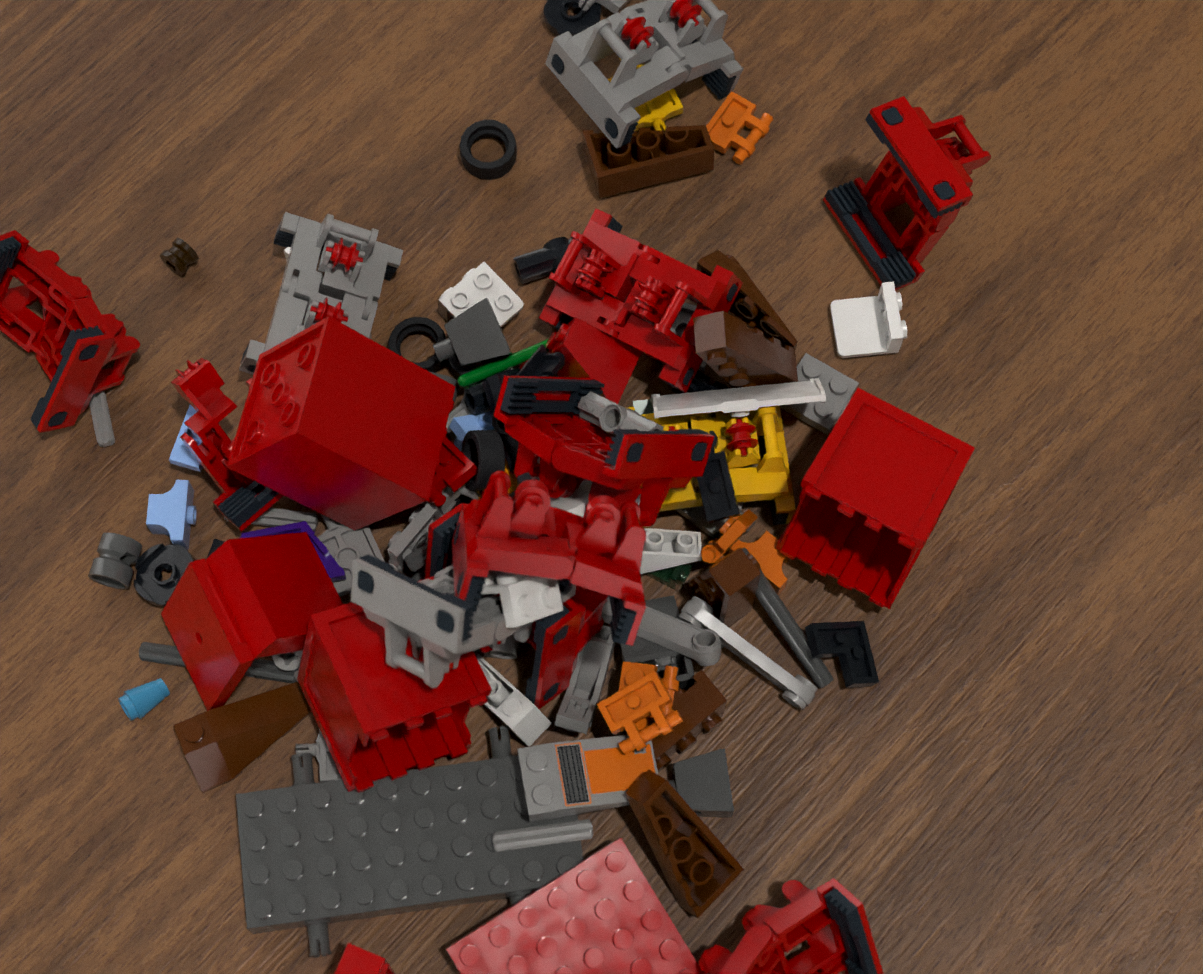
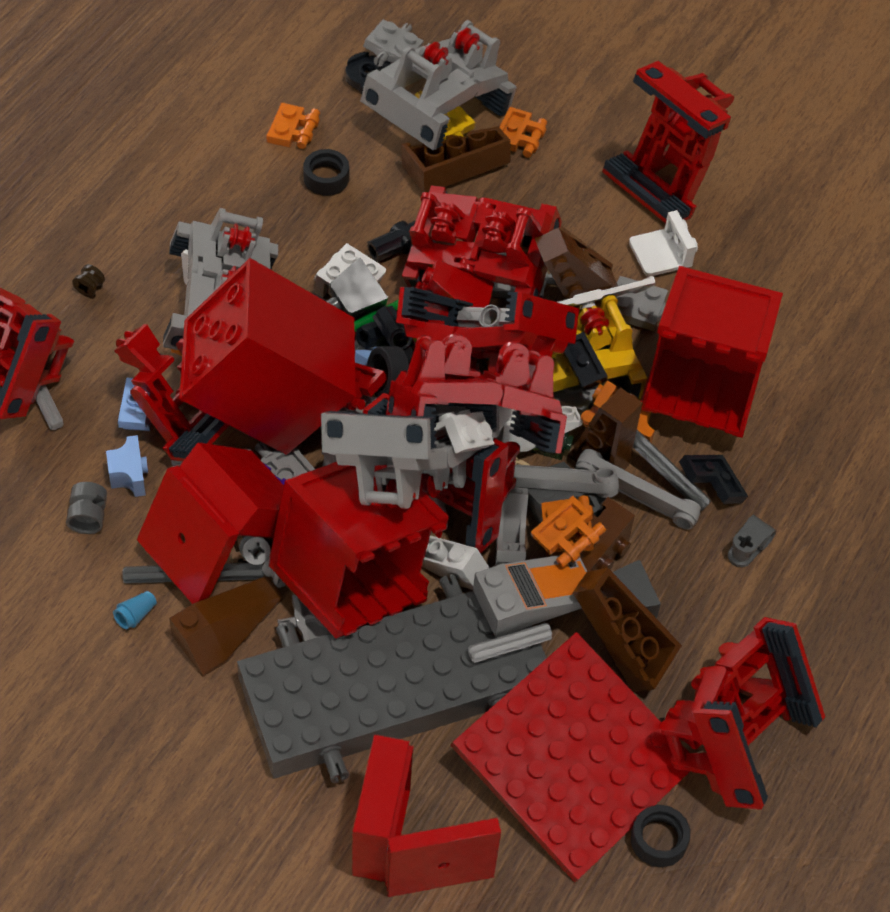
camera: 15 degrees left, 15 degrees down
(149, 571) = (121, 502): black plate -> none
(457, 72) = (286, 124): none -> orange plate
(868, 738) = (750, 541): none -> dark grey piece

